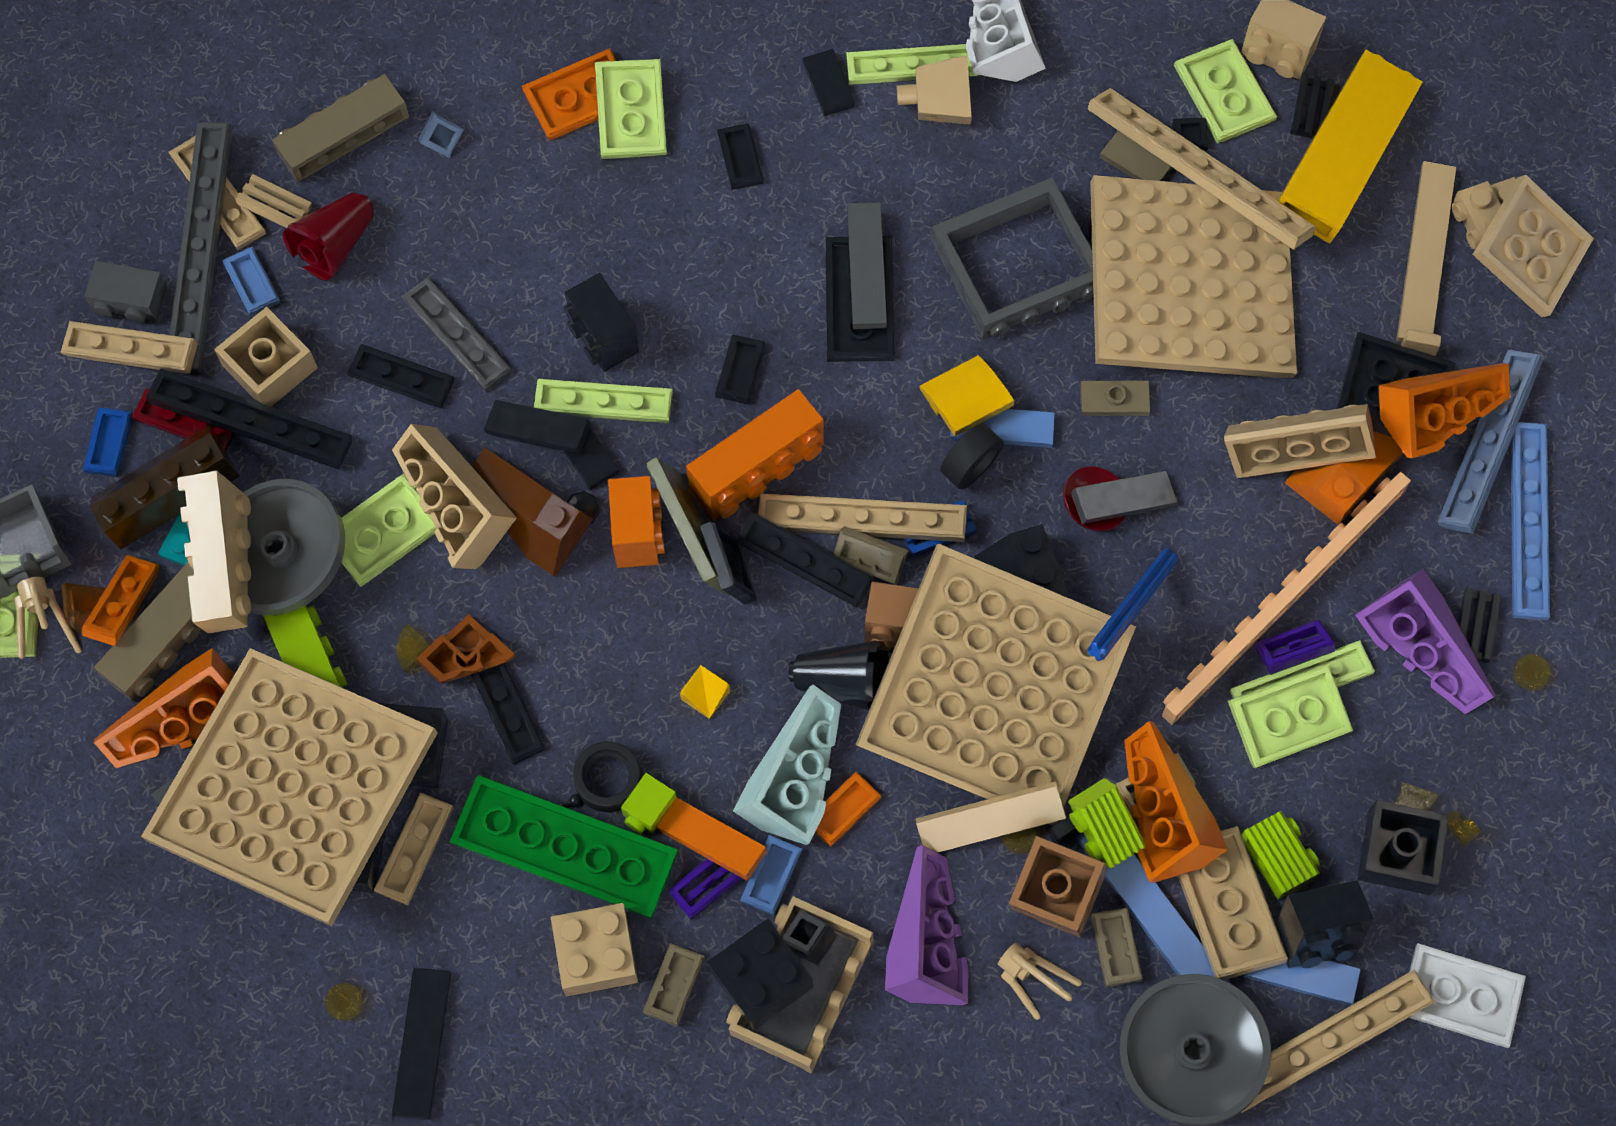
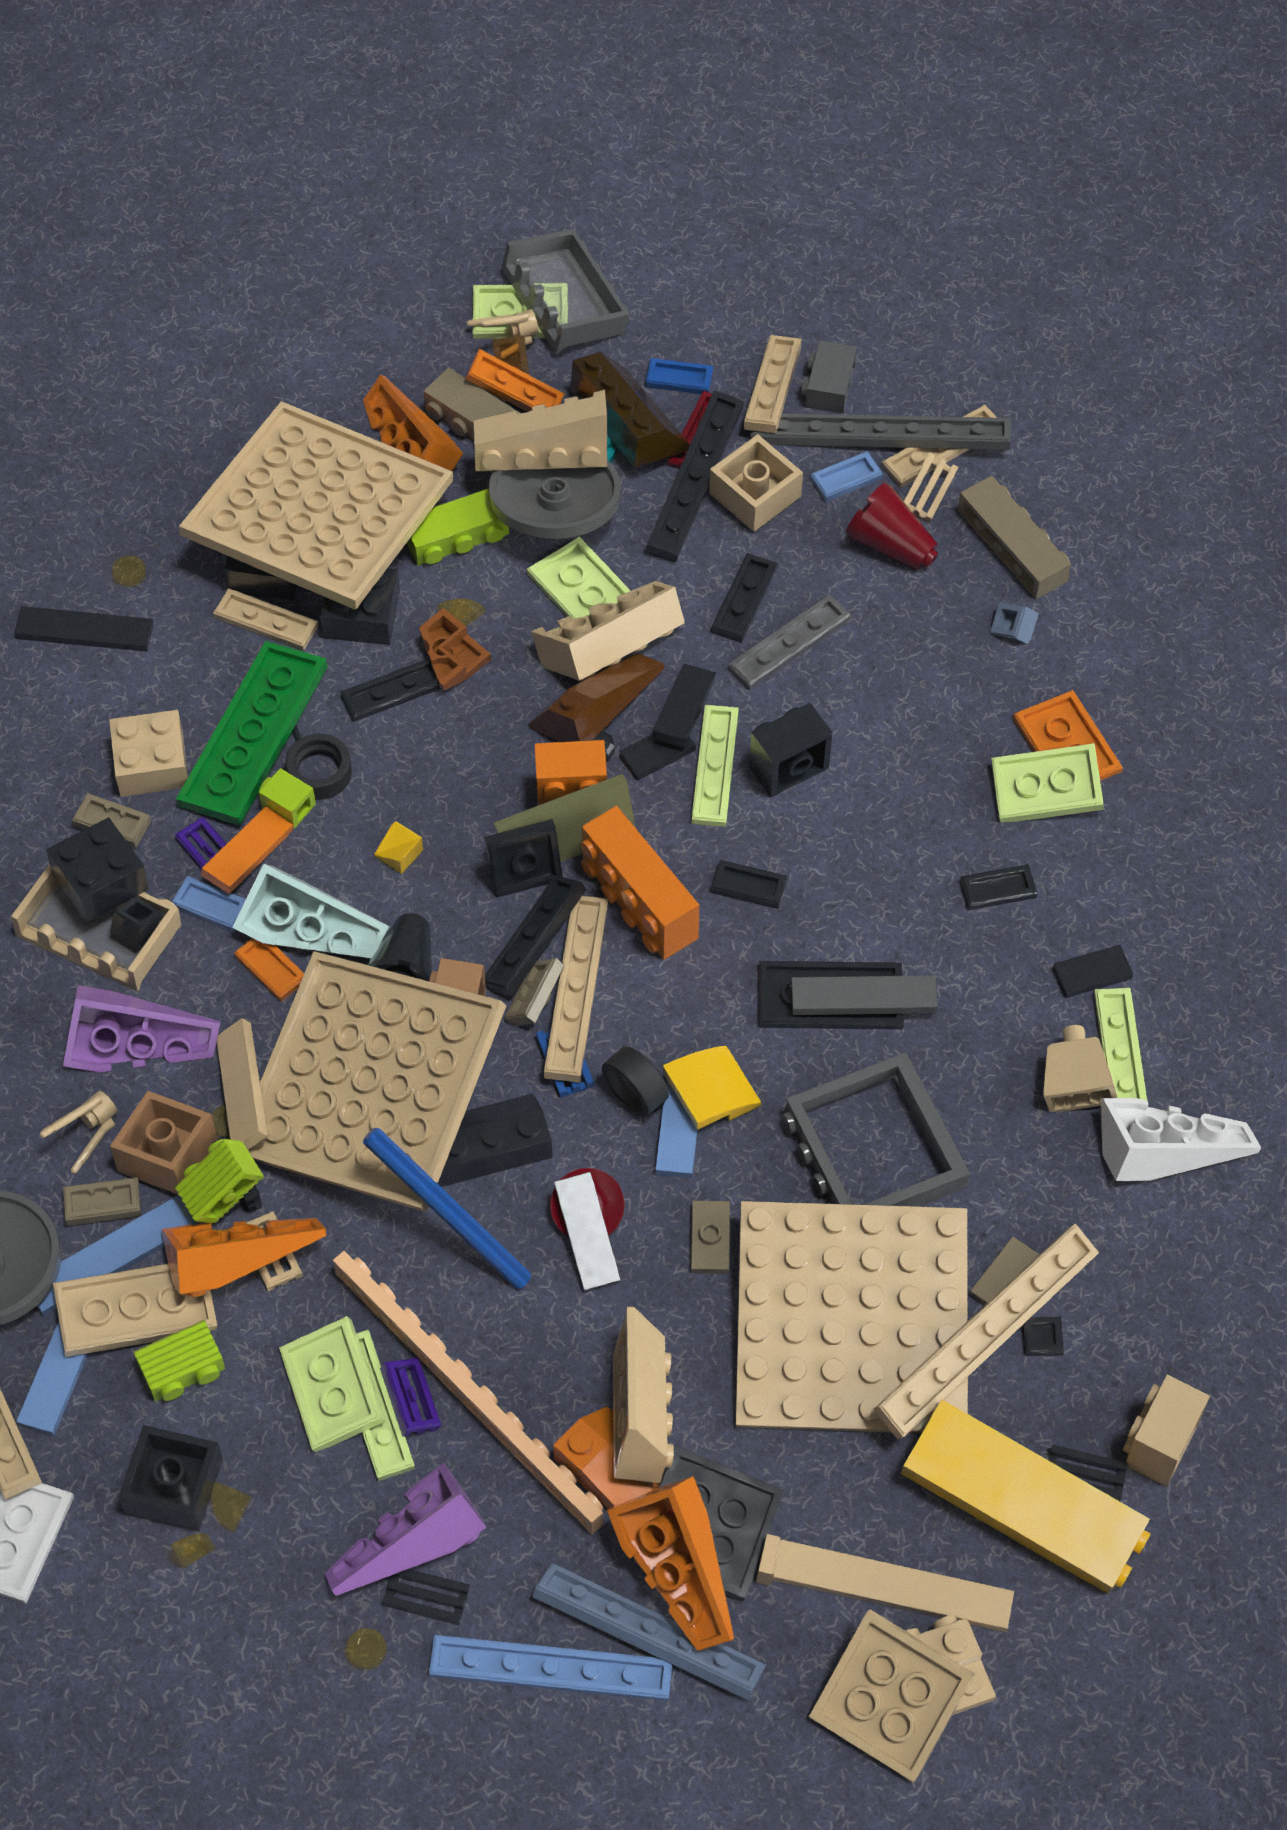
camera: 90 degrees right, 10 degrees down
(1225, 91) = (1100, 1378): yellowish green tile -> none
(1324, 924) = (90, 1381): black brick -> none

